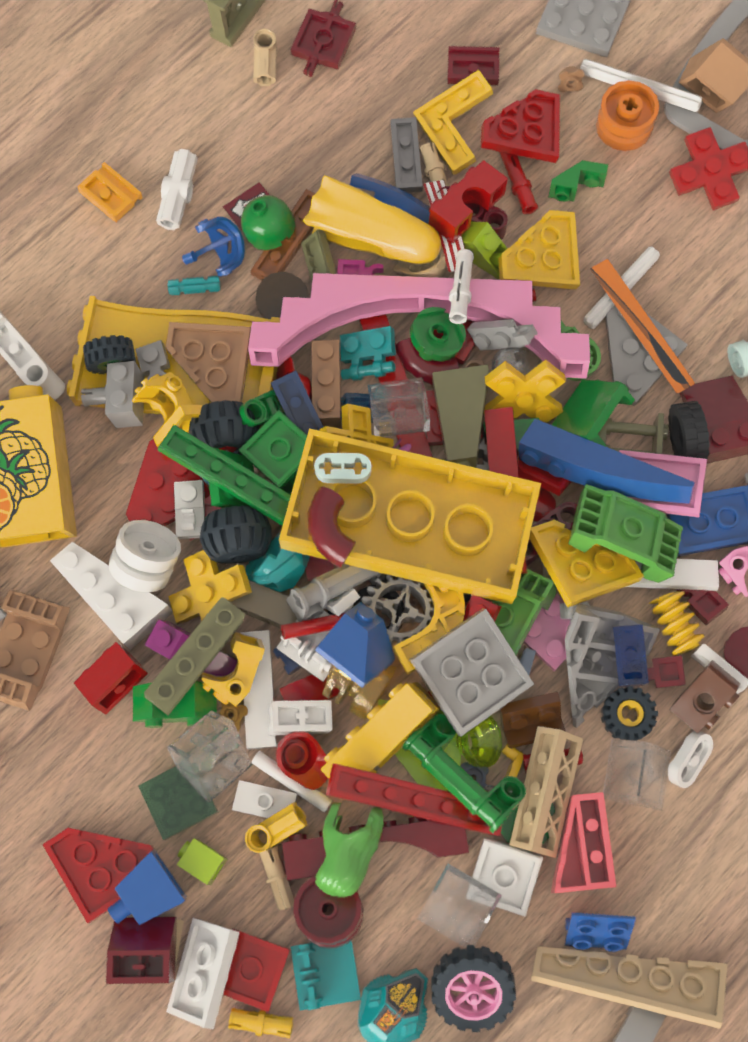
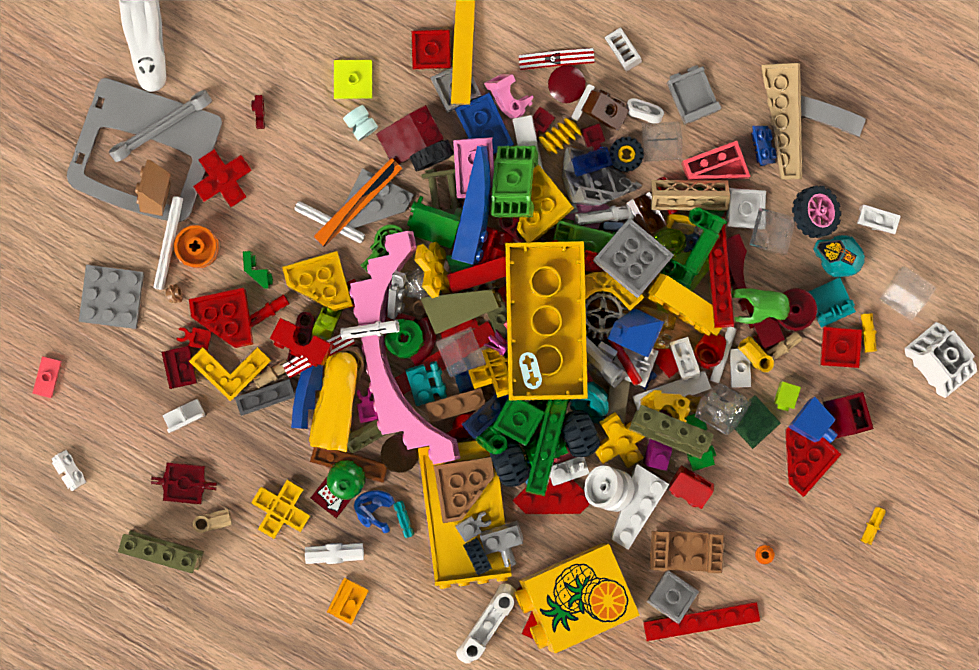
camera: 110 degrees left, 15 degrees up
(169, 397) = (502, 500): yellow tile -> none
(203, 973) = (850, 374): white plate -> none
(255, 140) = (280, 509): none -> yellow plate
(324, 527) = (575, 370): dark red cylinder -> none
(409, 58) = (184, 415): none -> white panel
(506, 92) = (198, 338): none -> red plate
(543, 668) = (612, 214): none -> white pin
(700, 841) = (693, 95): none -> light grey panel

